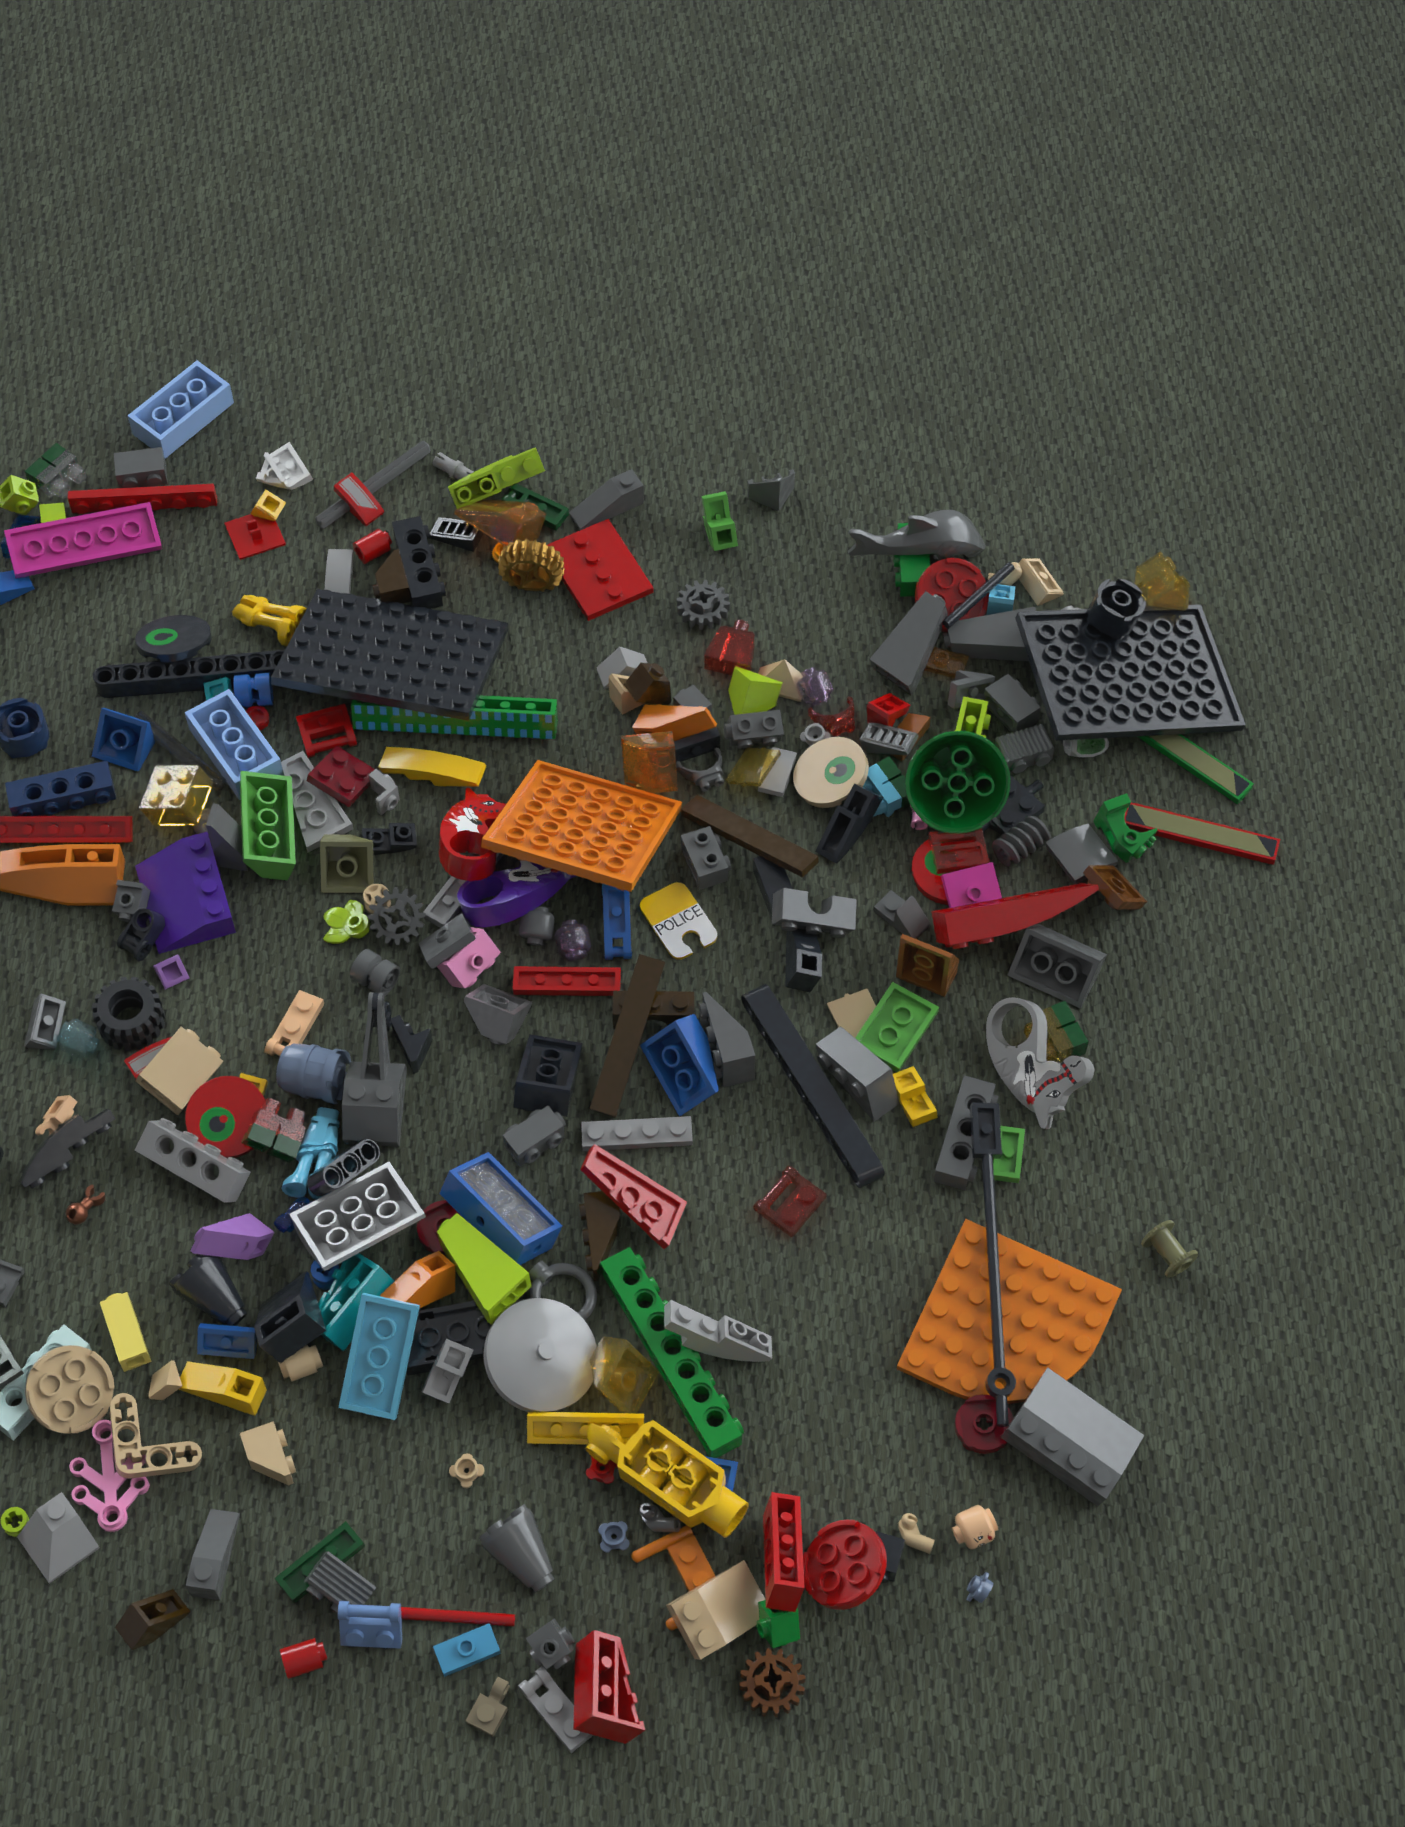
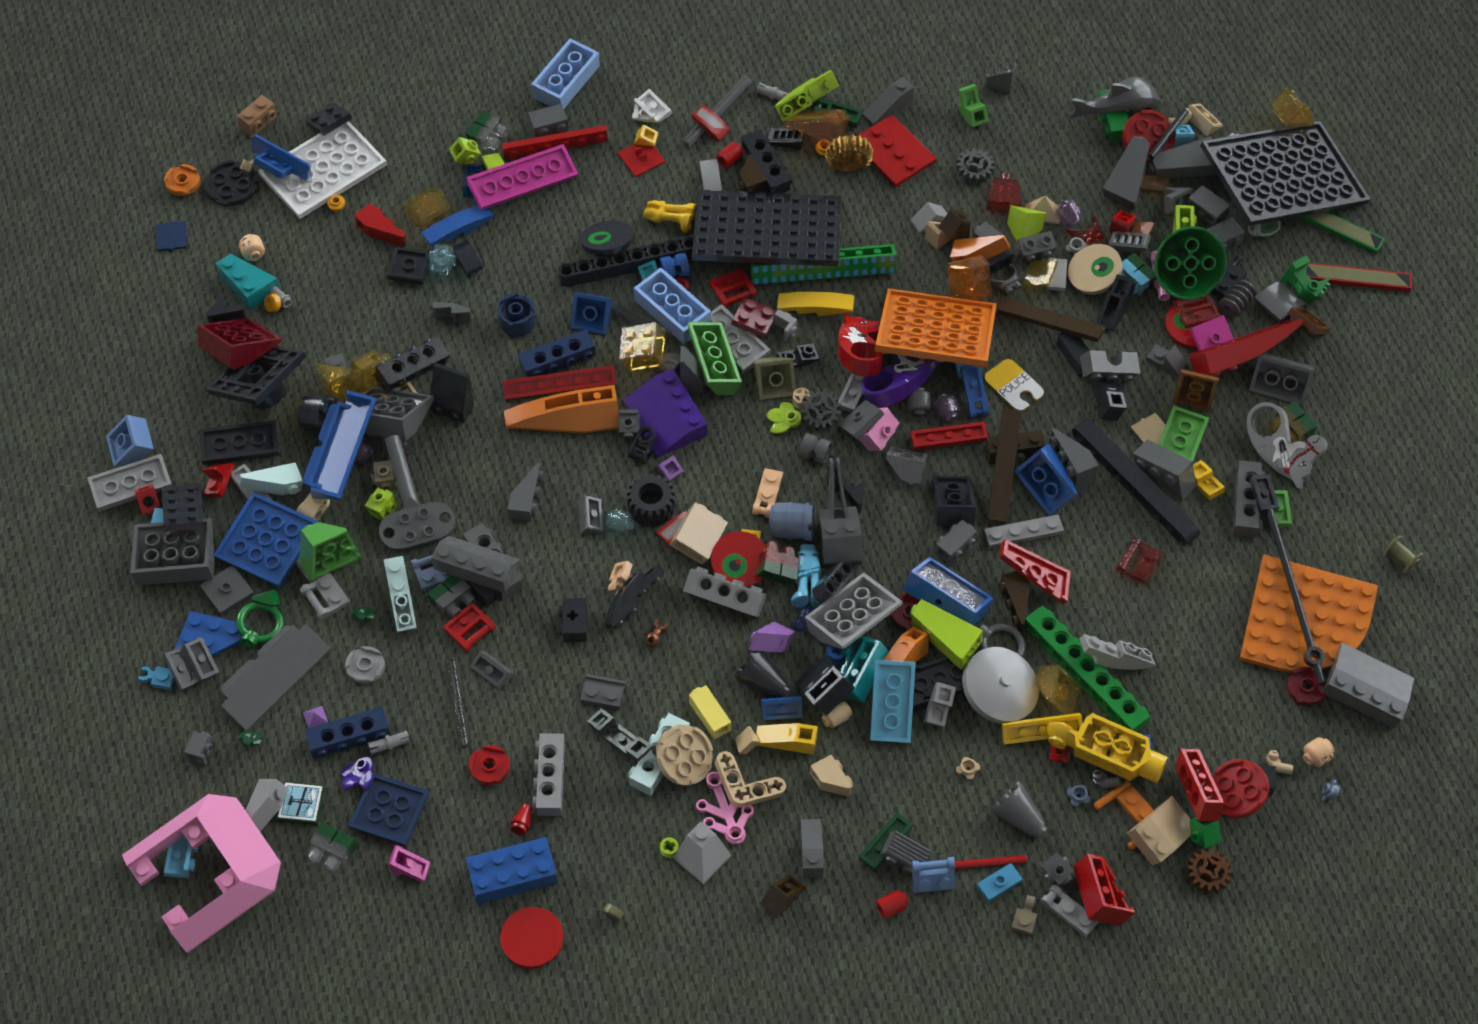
camera: 10 degrees left, 0 degrees up
(705, 857) = (1022, 339): dark grey brick -> none
(1116, 608) = (1268, 129): black brick -> none

